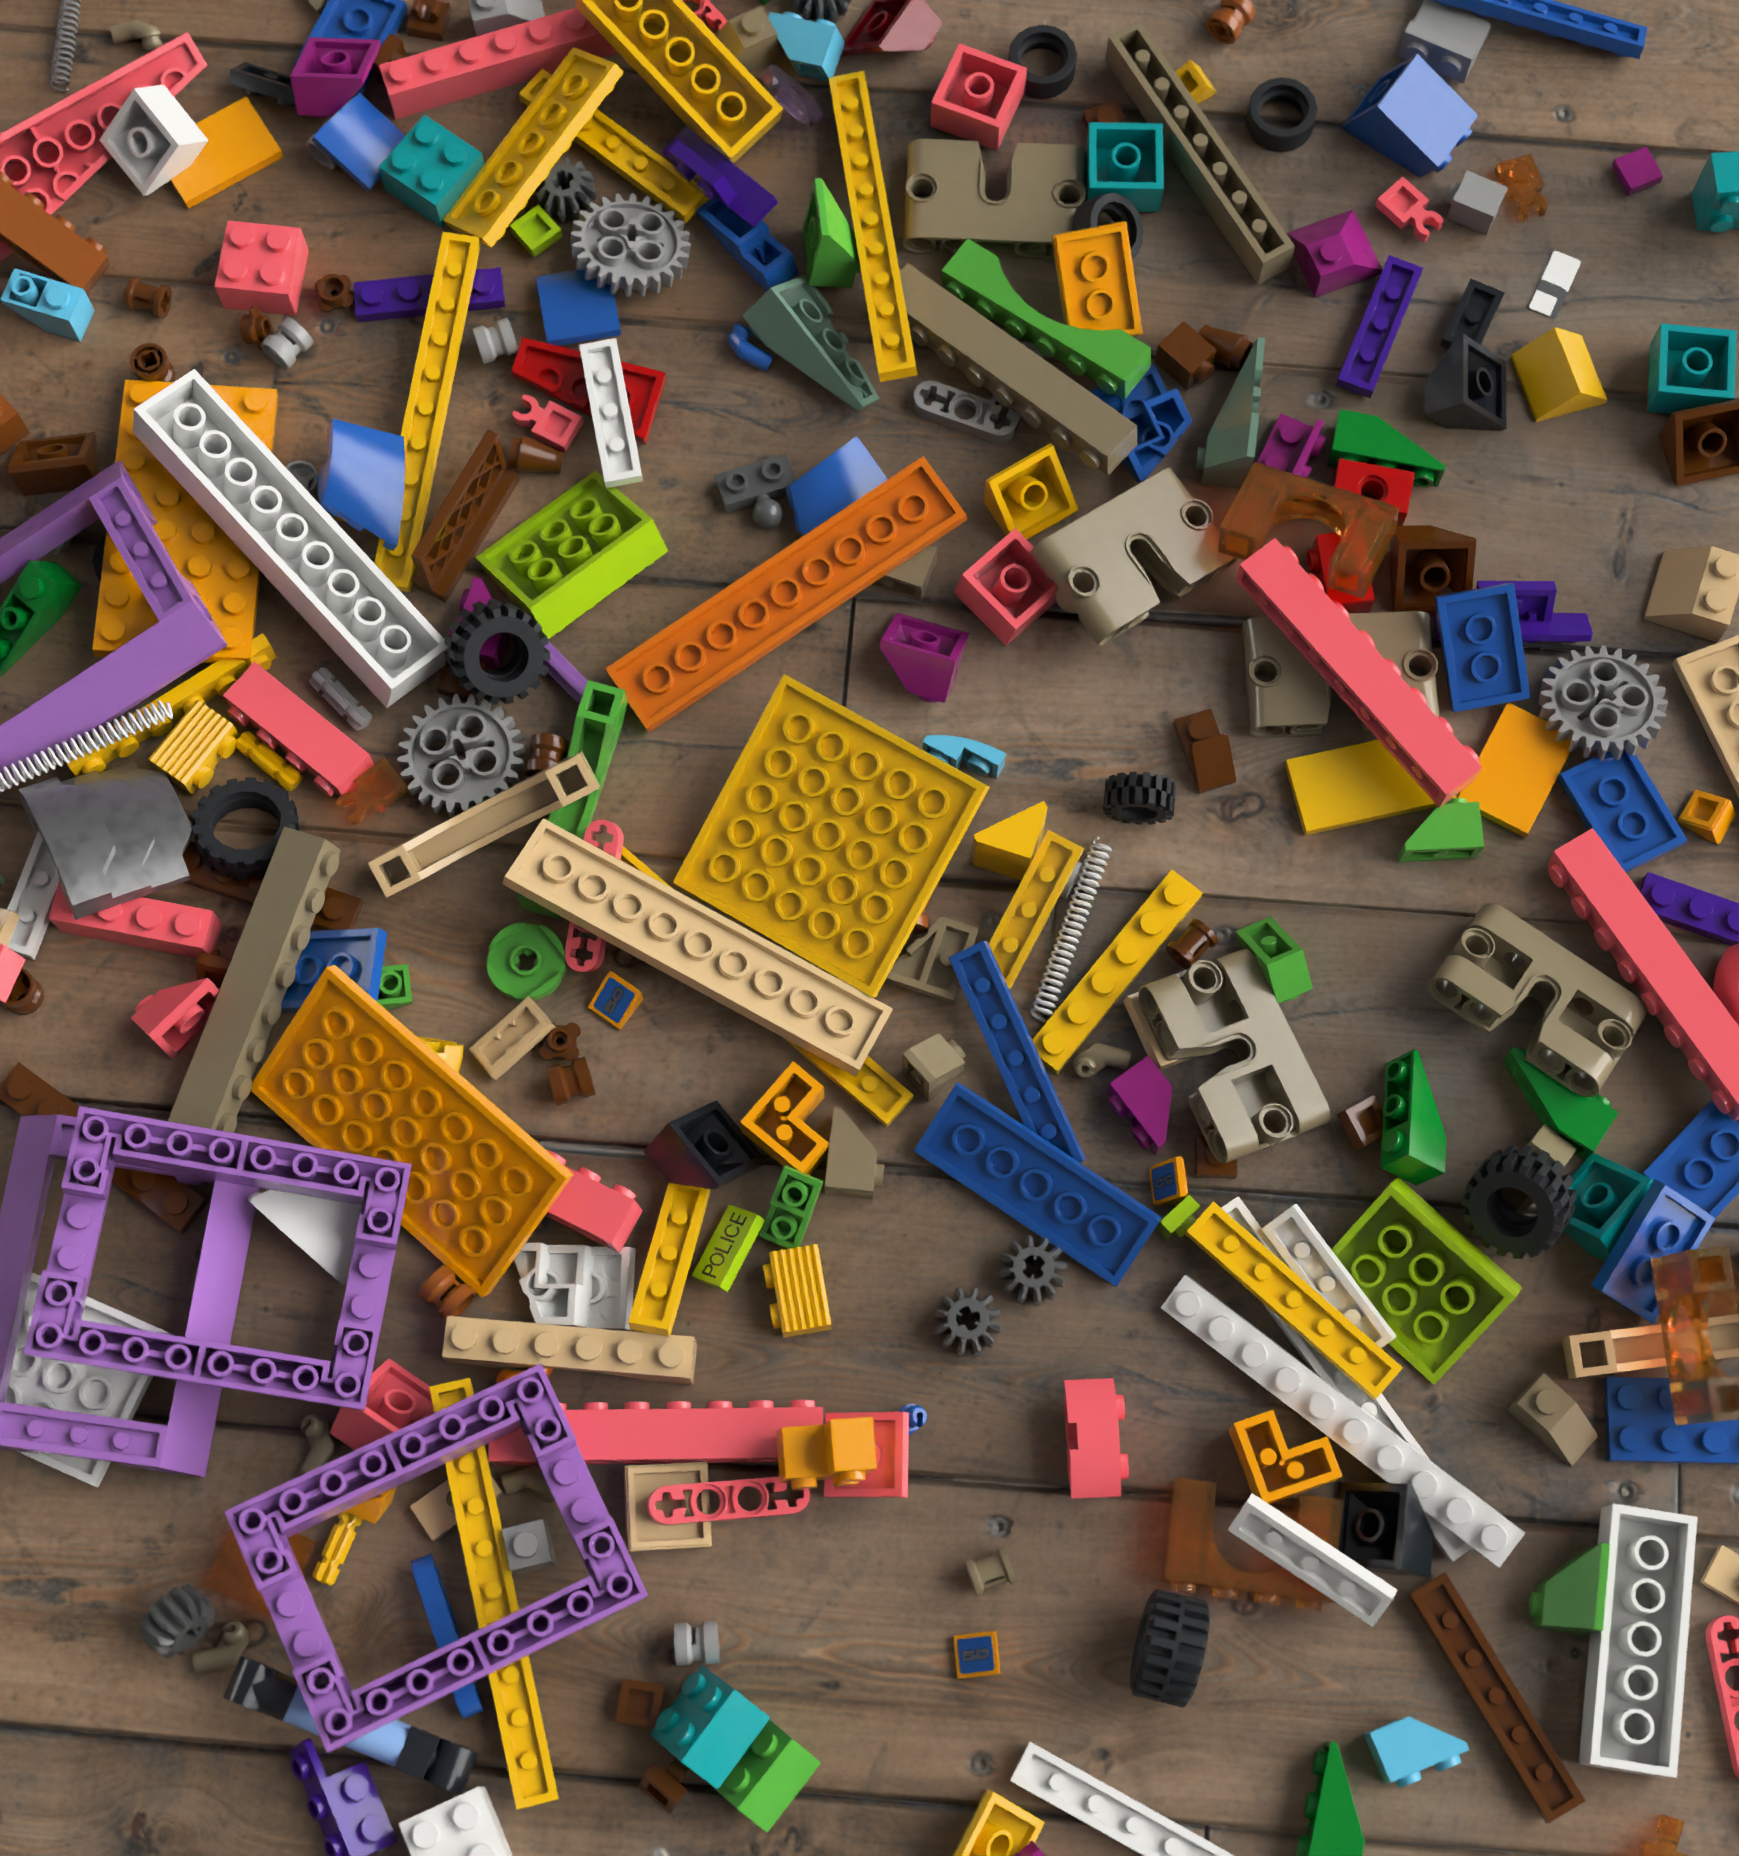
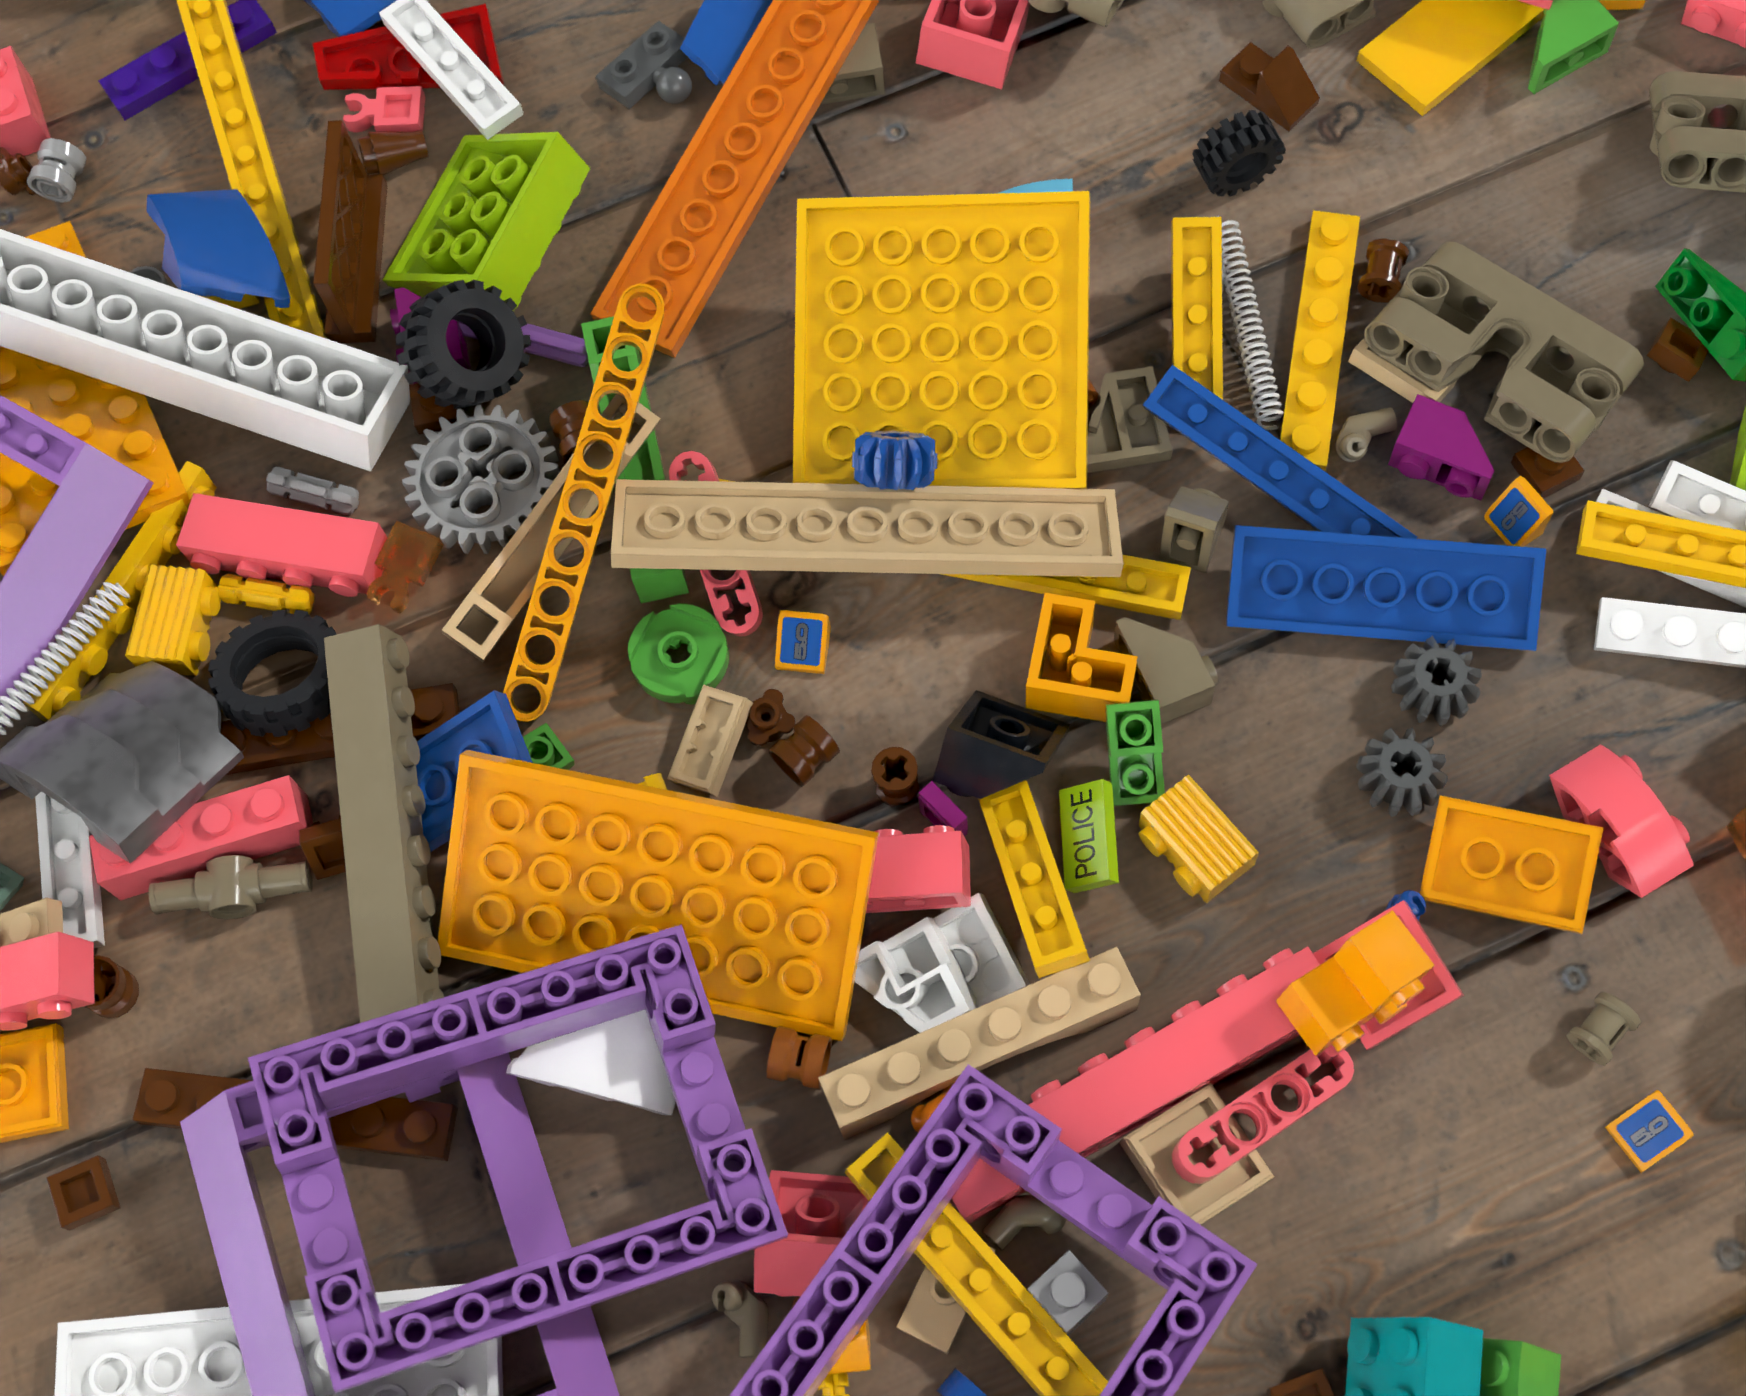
camera: 20 degrees left, 5 degrees down
(133, 964) = (230, 887): none -> dark tan pin
(176, 1014) = (307, 912): coral slope -> none
(330, 284) = (82, 101): reddish brown plate -> none
(494, 837) = (582, 477): none -> light orange beam
(495, 340) = (285, 61): light grey wheel -> none
(631, 1127) = (895, 761): none -> reddish brown bush
(638, 1177) = (940, 809): none -> magenta tile
(706, 1642) = (1328, 1297): light grey wheel -> none
(745, 907) = (894, 460): none -> blue gear
(924, 655) = (929, 136): magenta slope -> none
(998, 1426) = (1511, 864): none -> light orange tile
(1010, 844) = (1137, 262): yellow slope -> none
(1179, 1219) = (1558, 542): lime plate -> none
(1278, 958) = (1488, 229): bright green slope -> none

